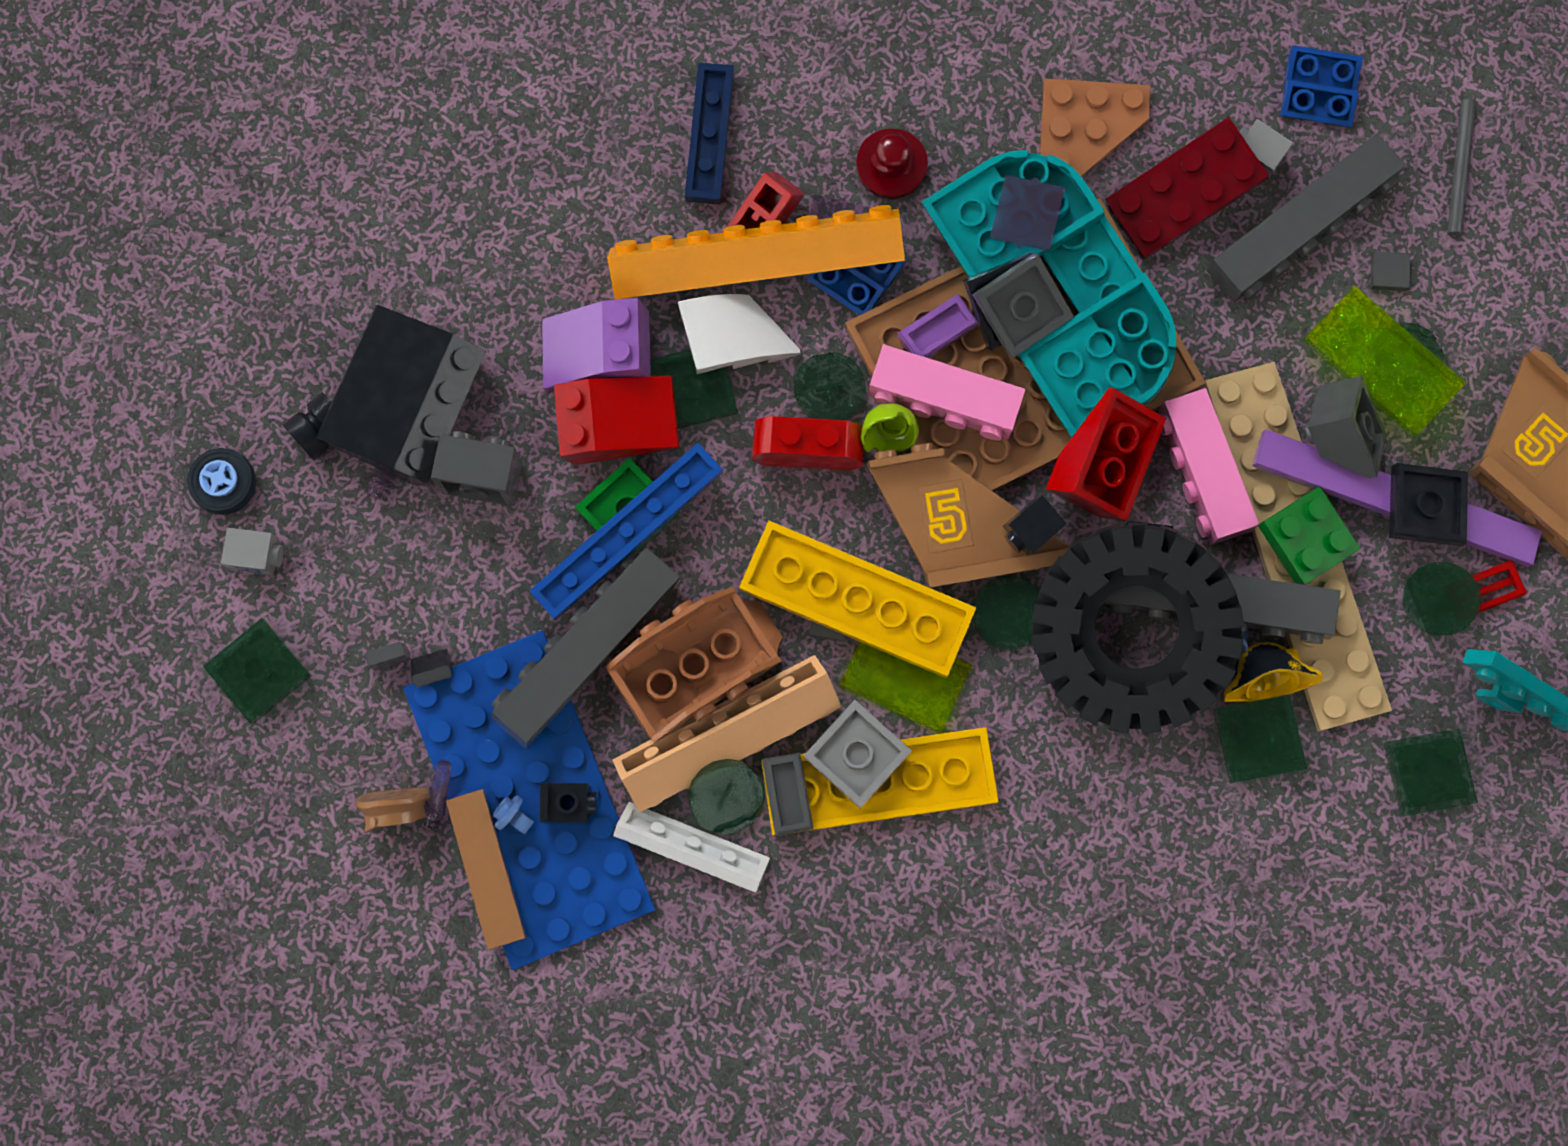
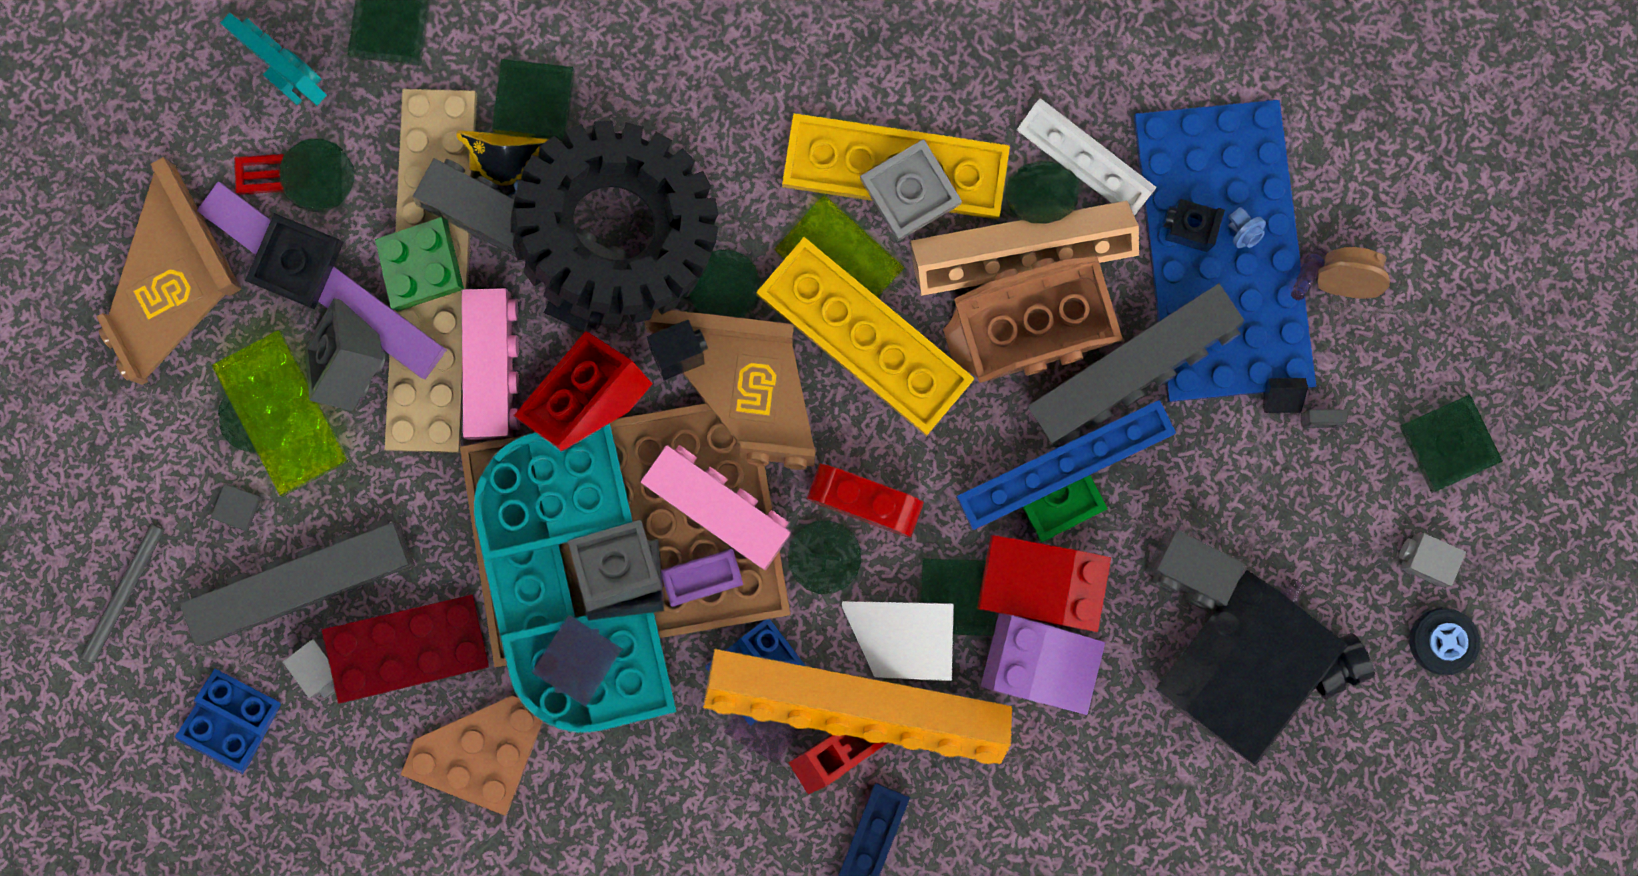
camera: 160 degrees left, 5 degrees up
(486, 869) = (1282, 190): medium nougat tile -> none
(787, 794) = (985, 176): dark grey tile -> none
(889, 428) = (783, 489): lime hair -> none
(891, 163) = (689, 772): dark red plate -> none

